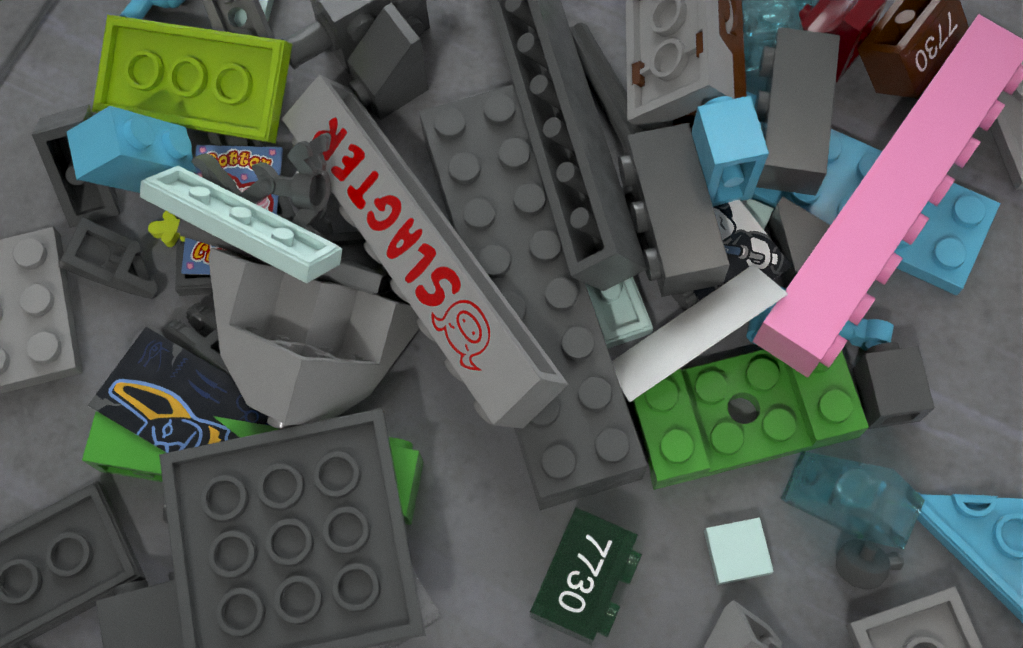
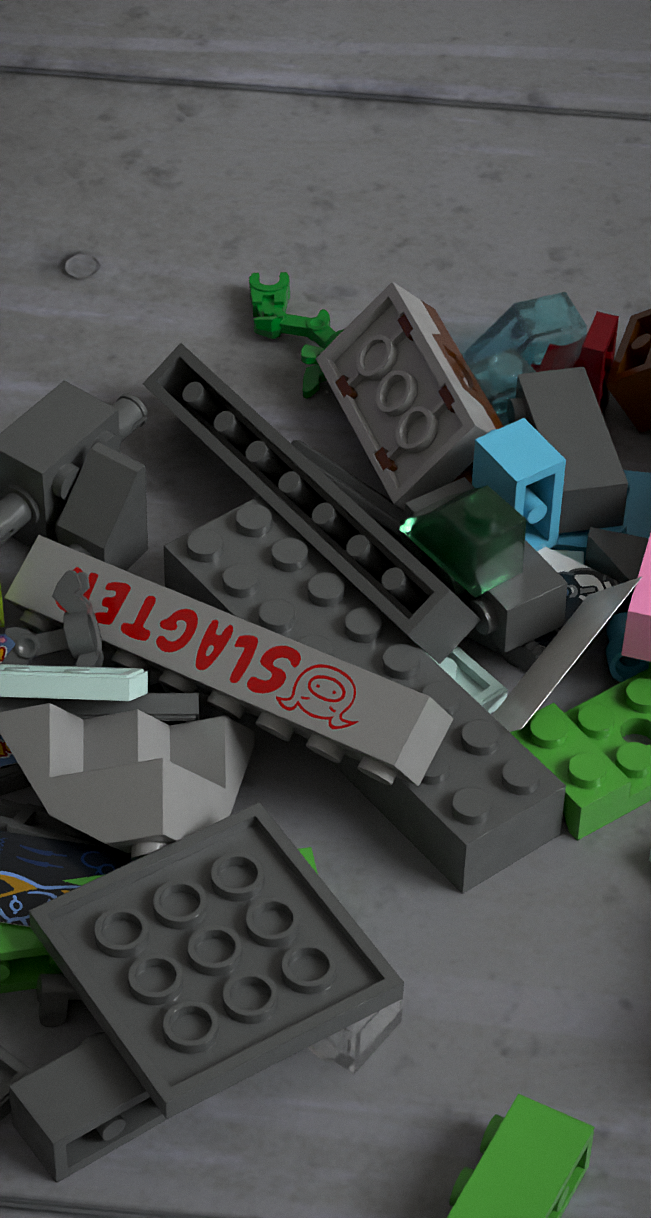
camera: 25 degrees left, 25 degrees down
(584, 577) = (544, 923): clear green brick -> none
(658, 197) = (471, 537): none -> clear green slope

